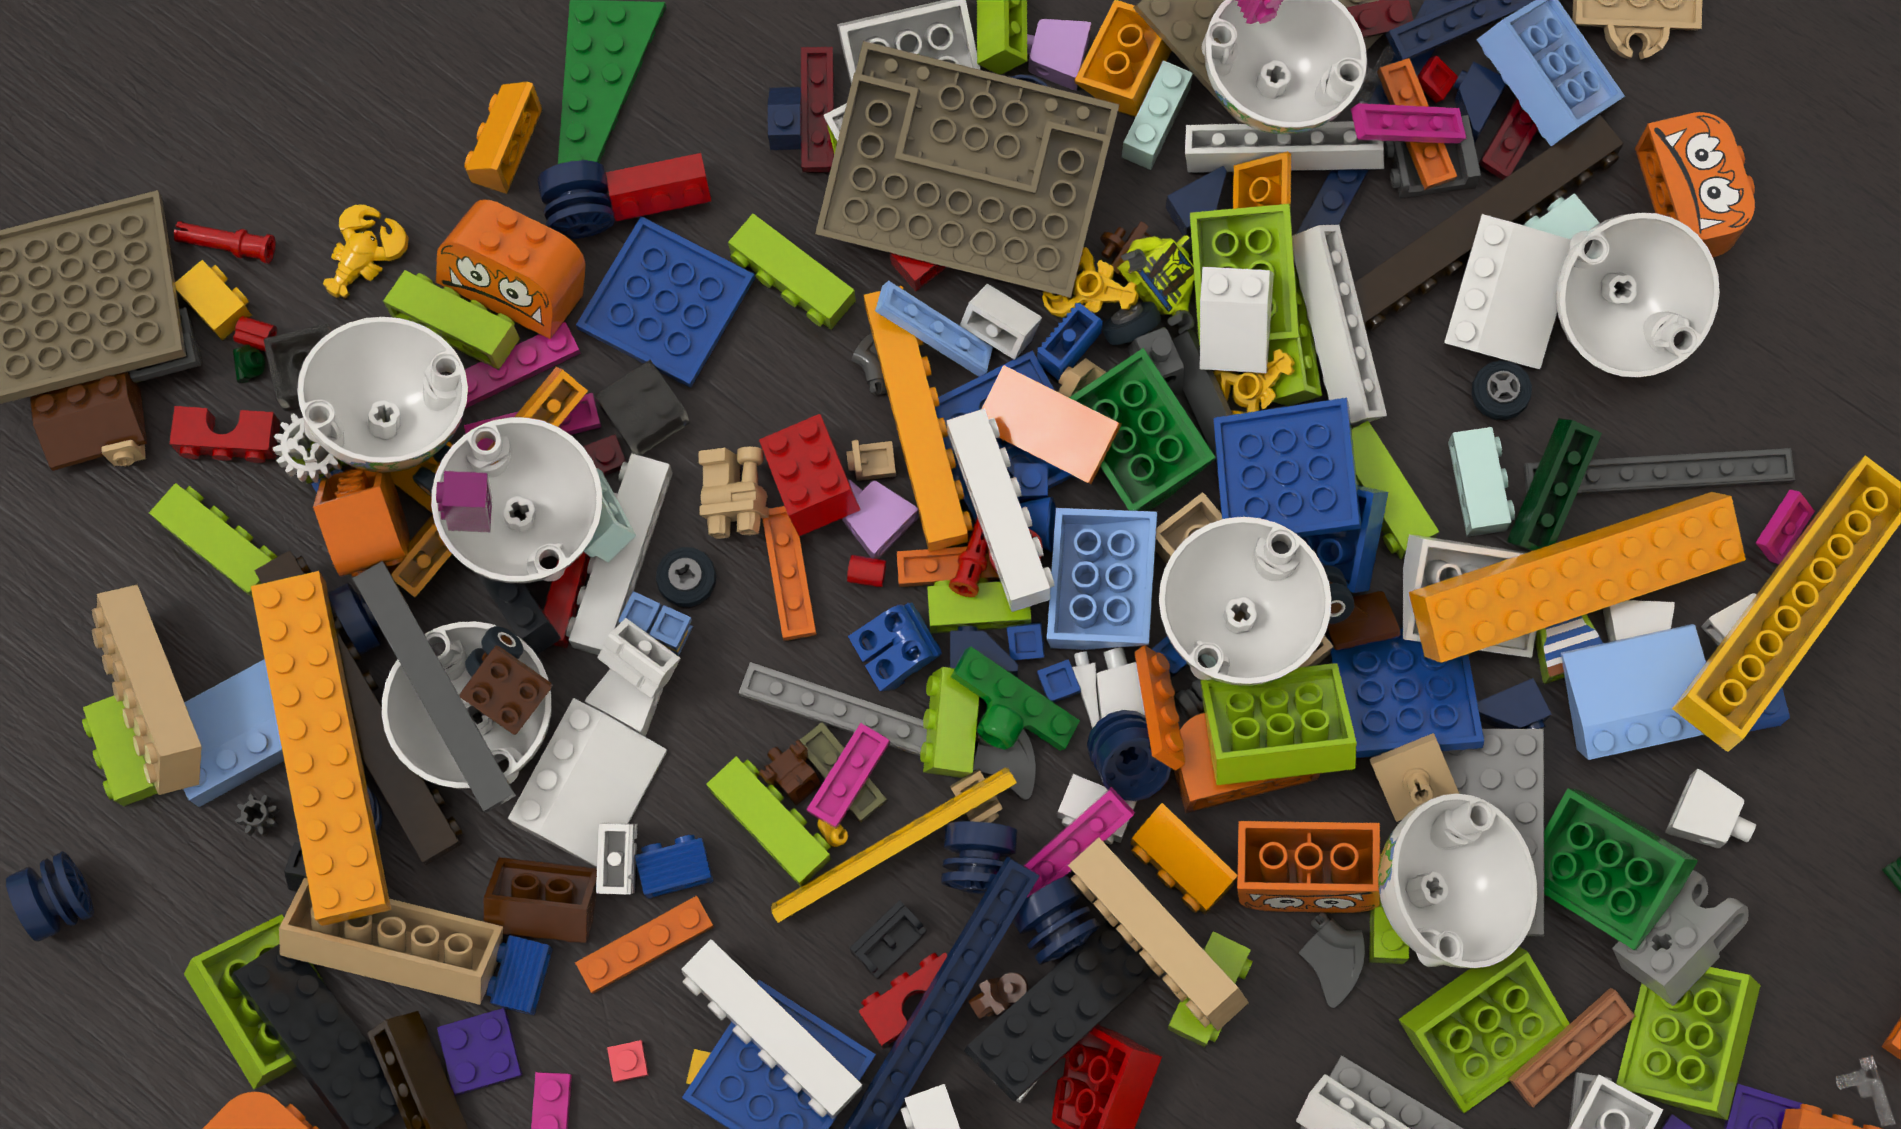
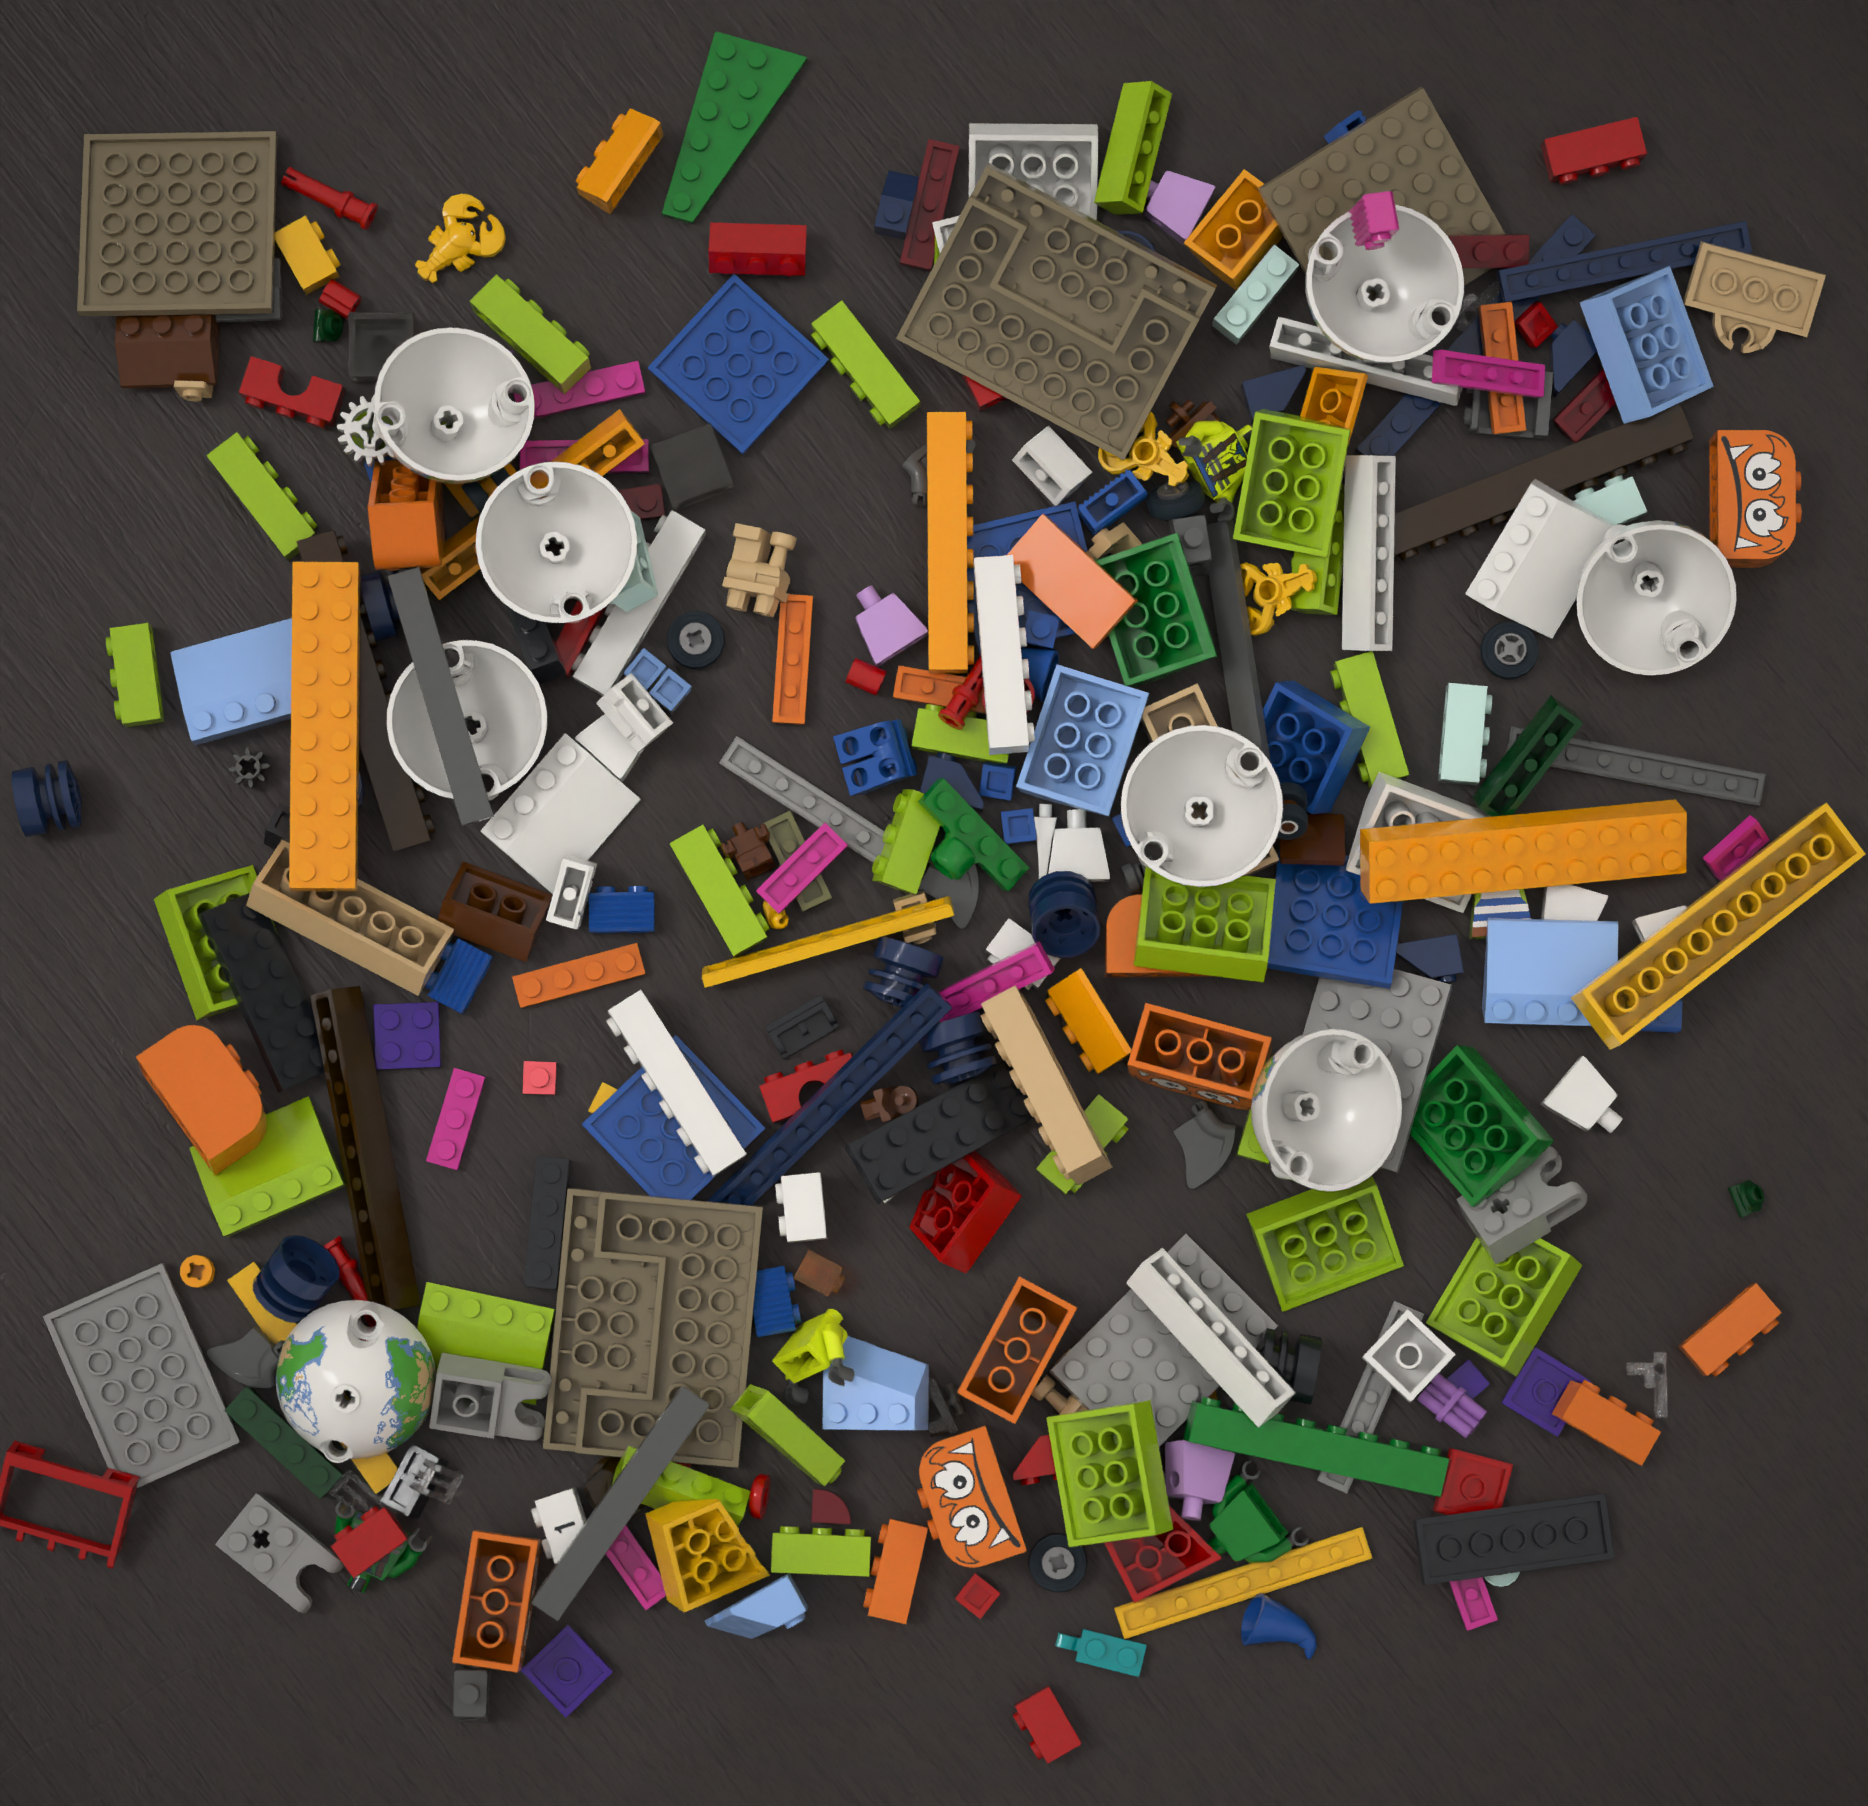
camera: 10 degrees right, 10 degrees up
(147, 690) = (174, 630): tan brick -> none
(465, 501) = (510, 542): magenta brick -> none
(501, 683) = (502, 711): reddish brown plate -> none
(513, 266) = (600, 299): orange brick -> none
(576, 198) = (676, 239): dark blue wheel -> none
(809, 475) = (834, 573): red brick -> none
(871, 460) = (896, 570): tan bracket -> none
(934, 328) = (985, 461): light blue tile -> none
(1160, 707) = (1102, 879): orange plate -> none
(1235, 319) = (1271, 525): white slope -> none
(1290, 467) = (1281, 685): blue plate -> none
(1413, 775) = (1319, 1000): tan tile -> none
(1571, 1047) = (1396, 1277): nougat tile -> none

